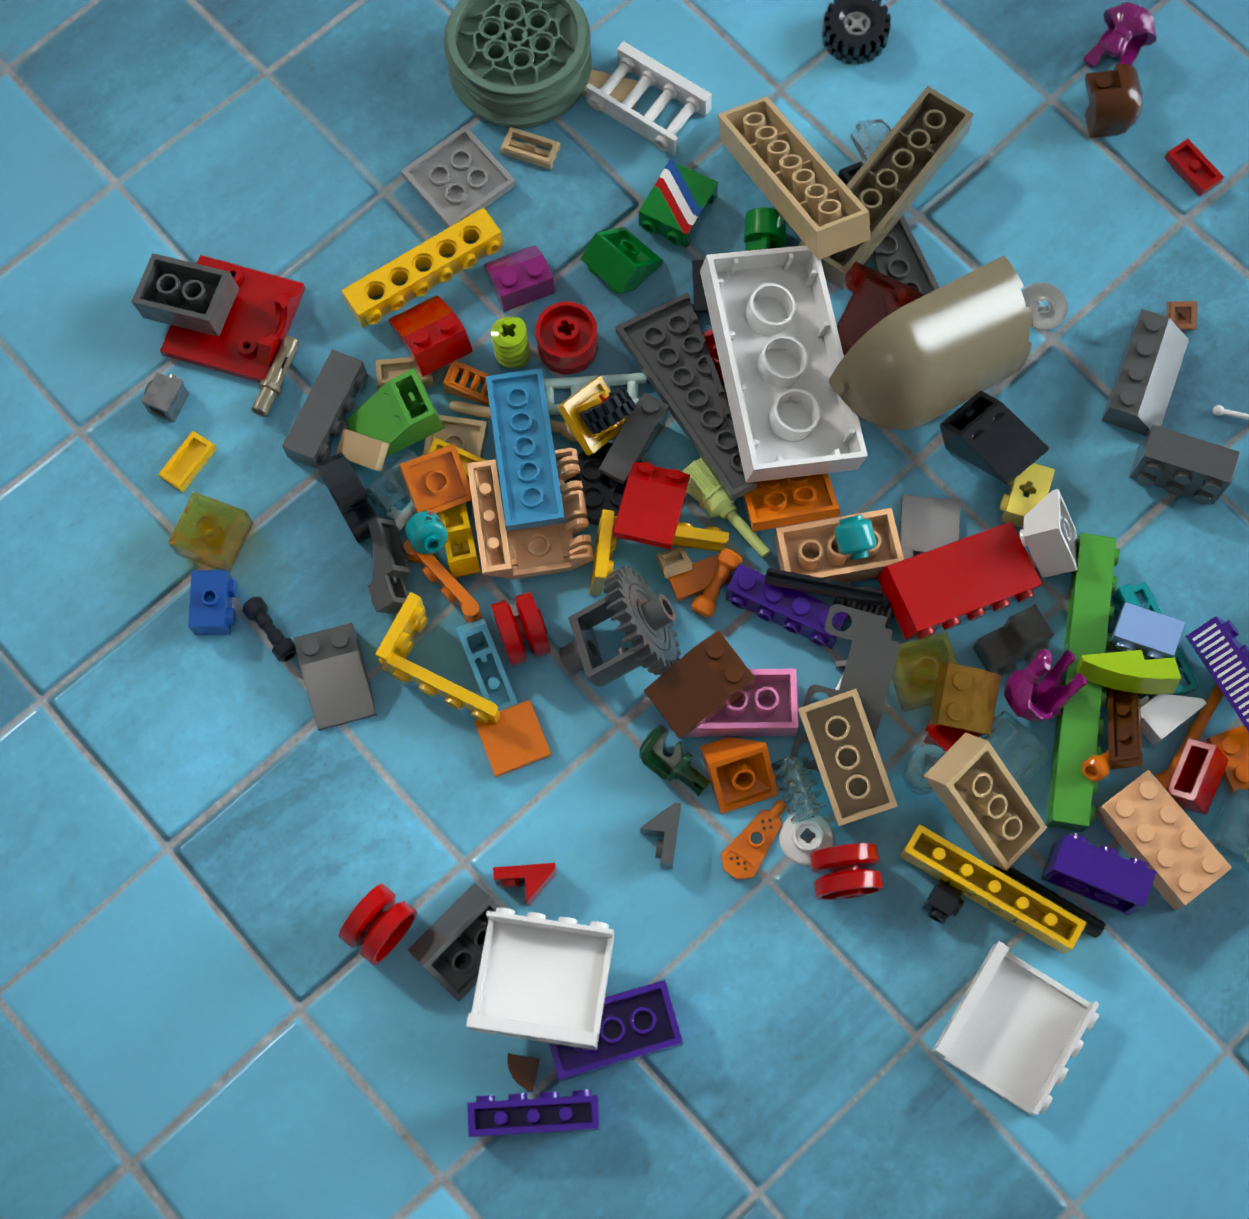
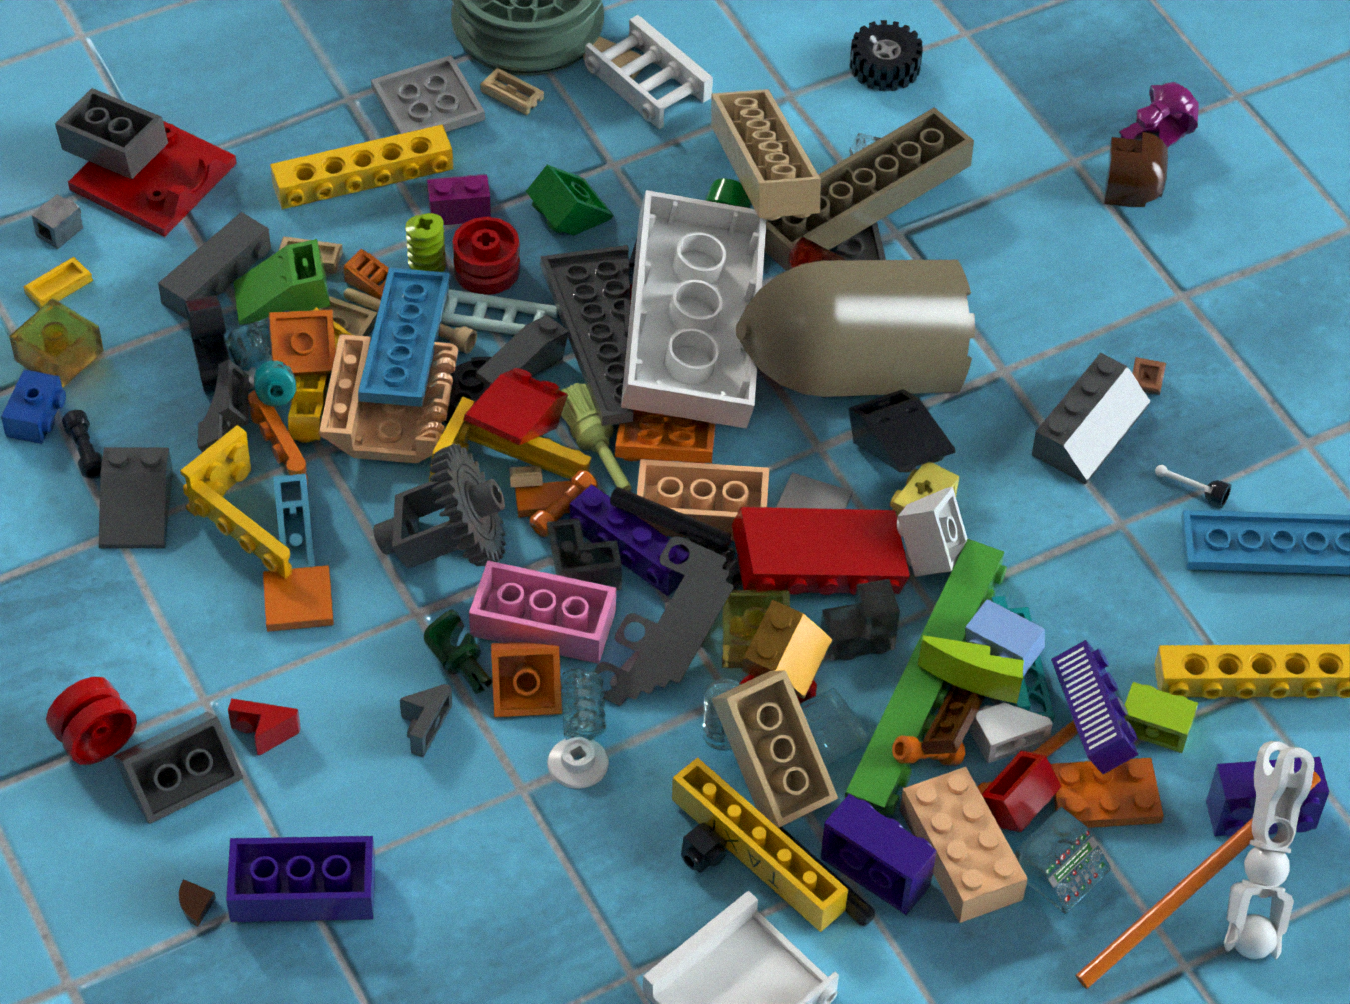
camera: 10 degrees right, 20 degrees down
(271, 386) = (168, 235): dark tan pin -> none
(363, 449) = (240, 304): tan tile -> none
(431, 335) = (348, 225): red slope -> none
(524, 627) = (341, 492): red wheel -> none
(533, 1116) = (188, 937): dark purple brick -> none
(542, 979) = (243, 800): white panel -> none
(596, 413) = (489, 321): plate -> none
(677, 203) = (643, 163): green panel -> none
(700, 685) = (508, 573): reddish brown slope -> none
(747, 850) = (514, 762): orange piece -> none
(754, 647) = (586, 562): none -> clear smoke brick
(846, 871) = (604, 787): red wheel -> none
(847, 757) = (642, 681): tan brick -> none
(855, 537) = (718, 478): teal head -> none
(1045, 316) = (988, 332): white piece -> none
(1045, 699) = (861, 679): magenta piece -> none
(1184, 465) = (1100, 502): dark grey brick -> none
(1194, 167) = (1205, 248): red plate -> none

